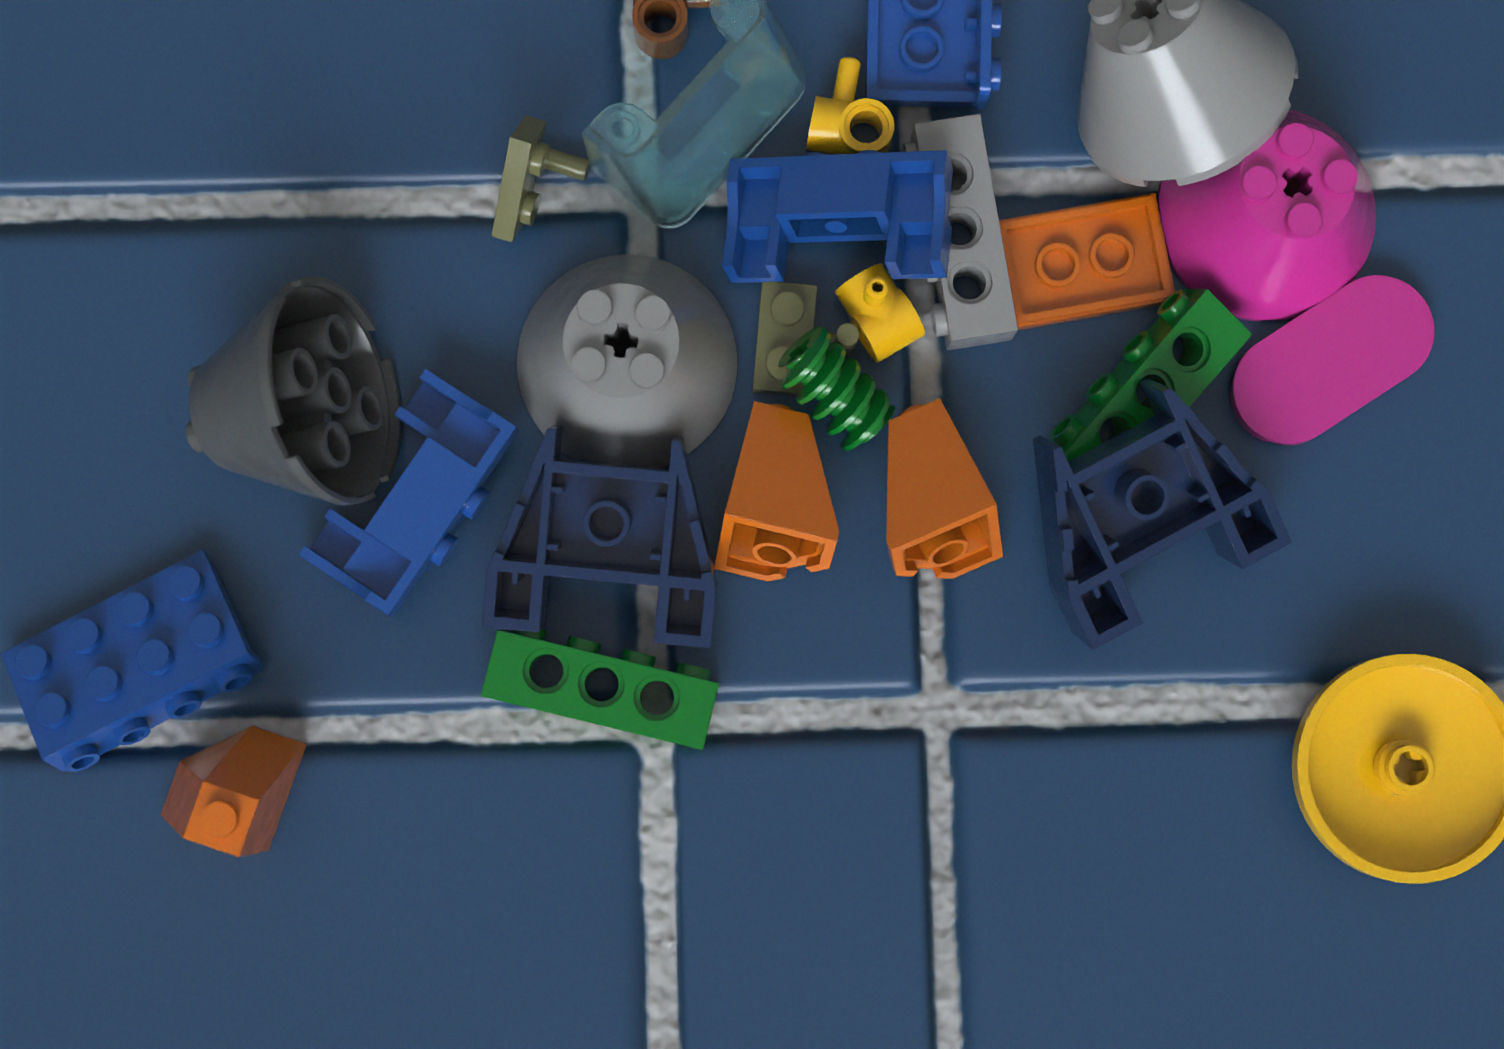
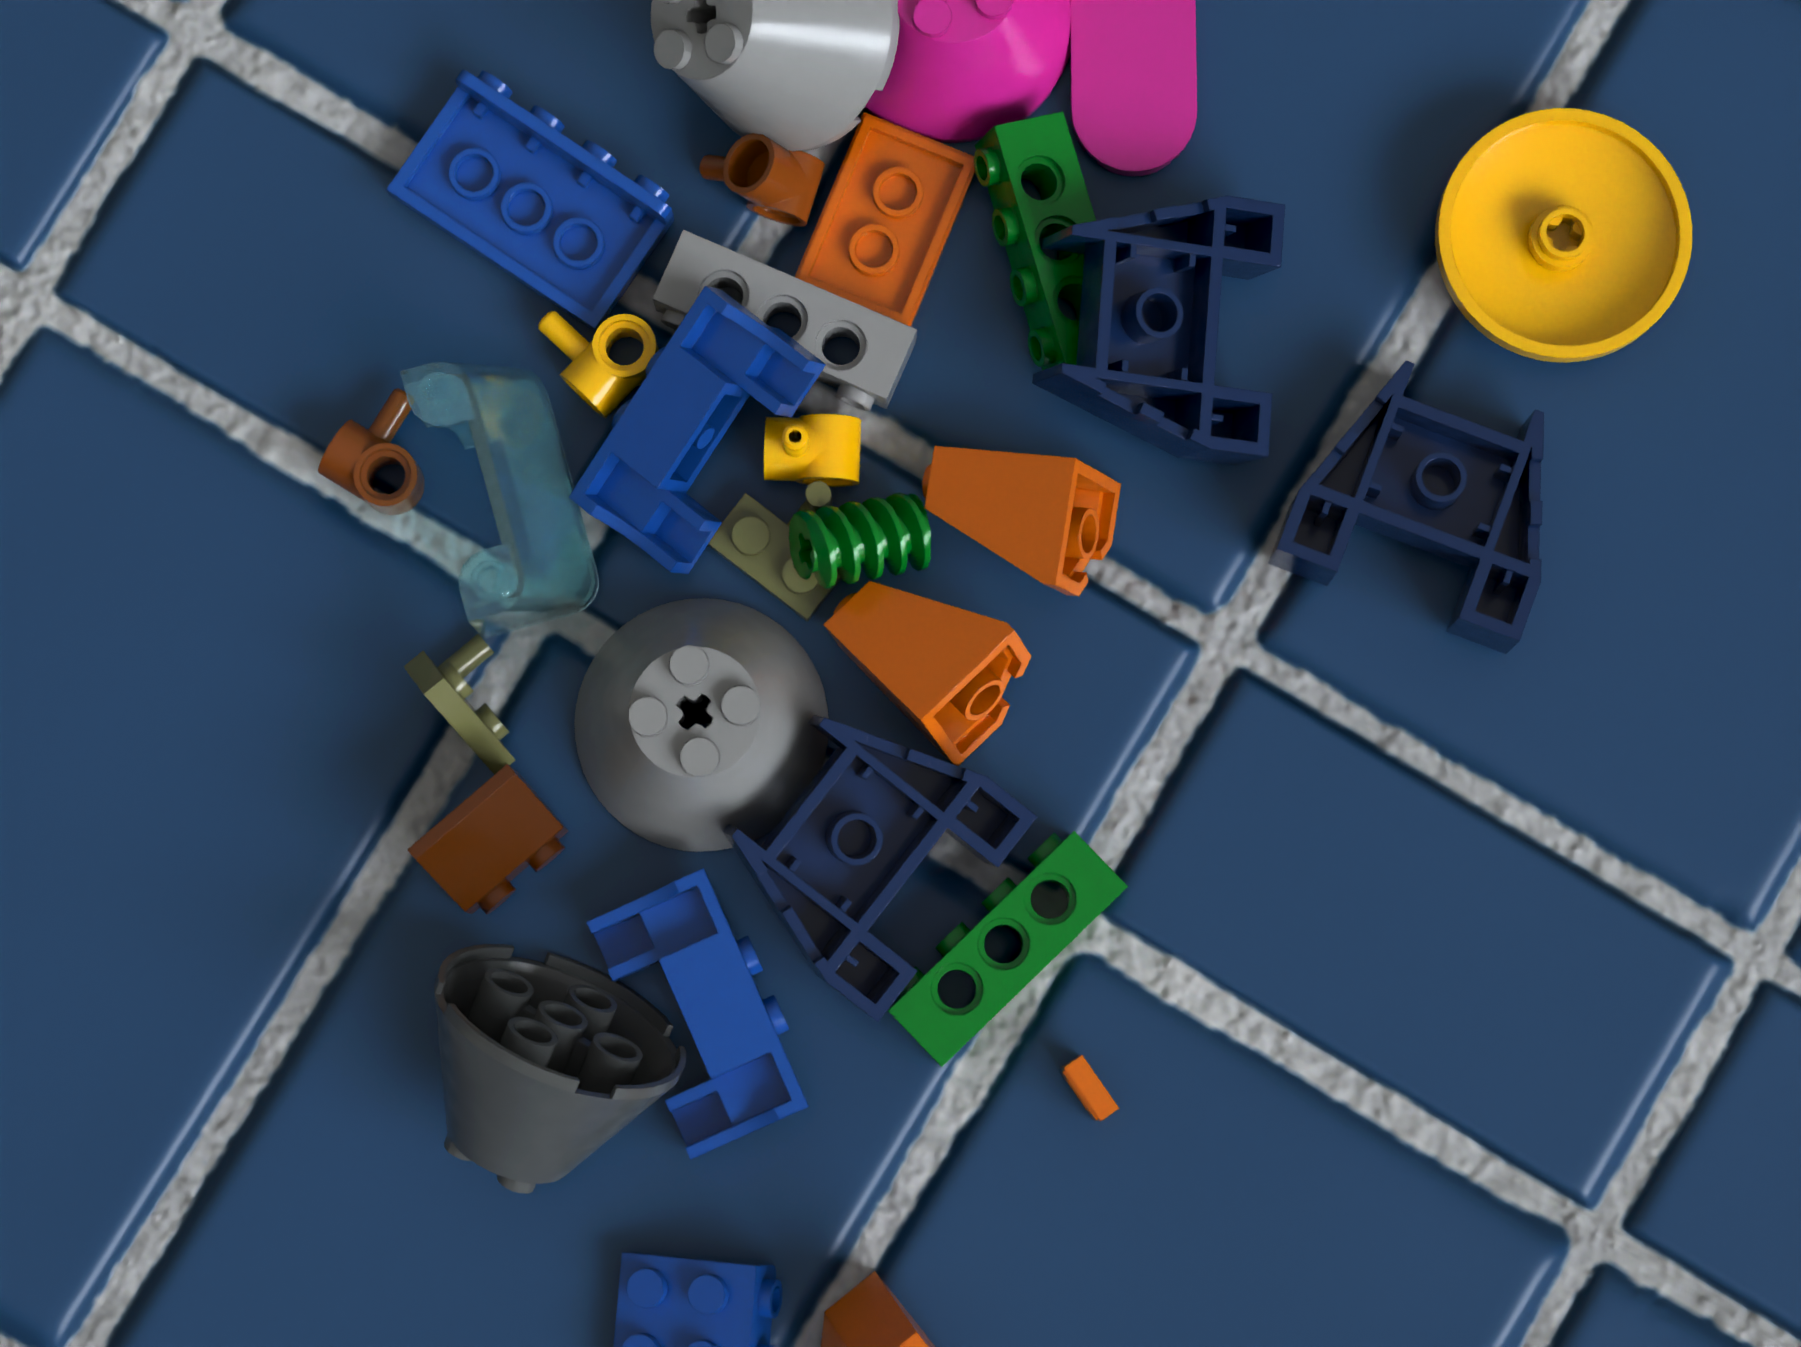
camera: 55 degrees left, 0 degrees up
(440, 260) = (490, 842): none -> reddish brown slope
(535, 816) = (1088, 1088): none -> orange tile
(1060, 154) = (771, 178): none -> dark orange piece
(1152, 794) = (1437, 489): none -> dark blue wedge

